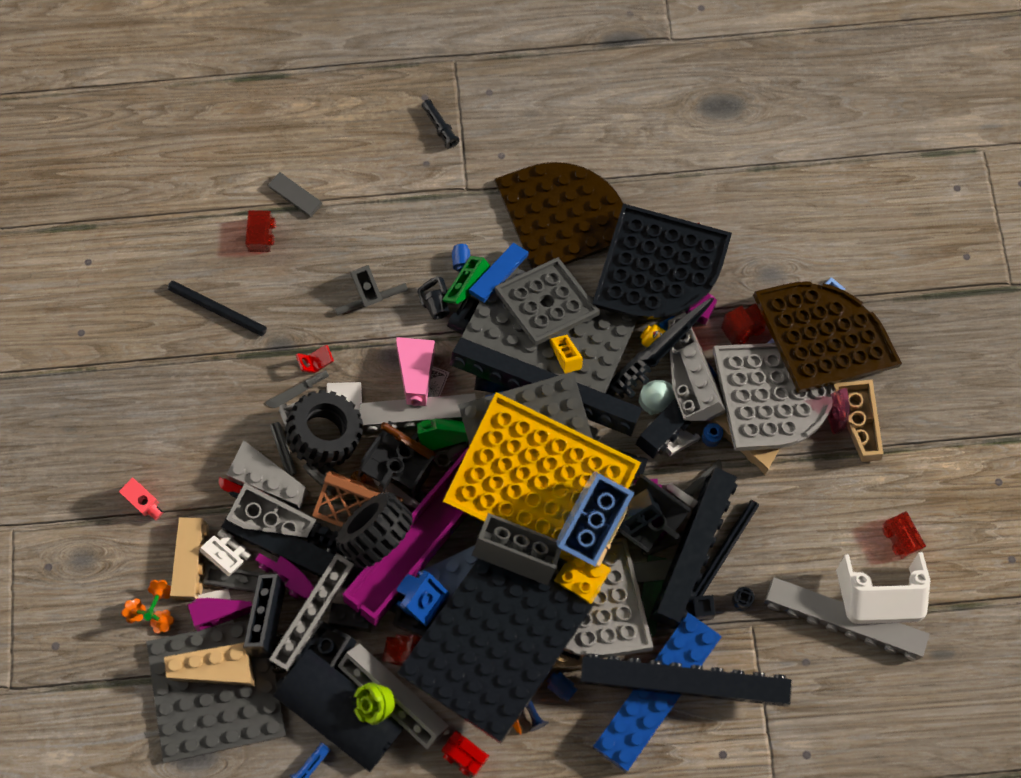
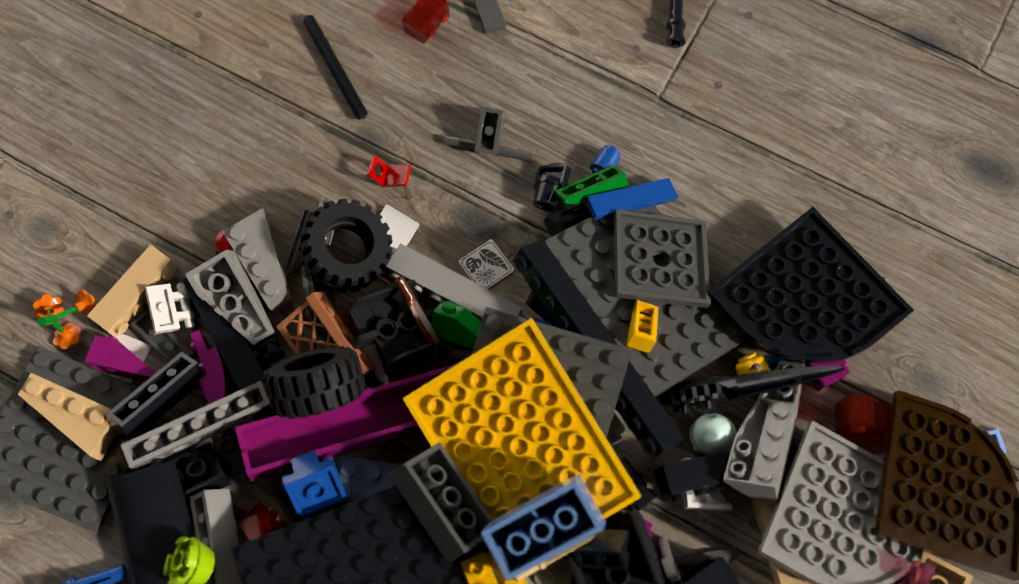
camera: 35 degrees right, 0 degrees up
(136, 494) = (130, 202): coral torso -> none
(295, 391) = (348, 192): dark grey piece -> none
(416, 366) = (481, 243): bright pink slope -> none
(560, 211) = (741, 176): dark brown plate -> none
(709, 439) = (741, 521): blue brick -> none

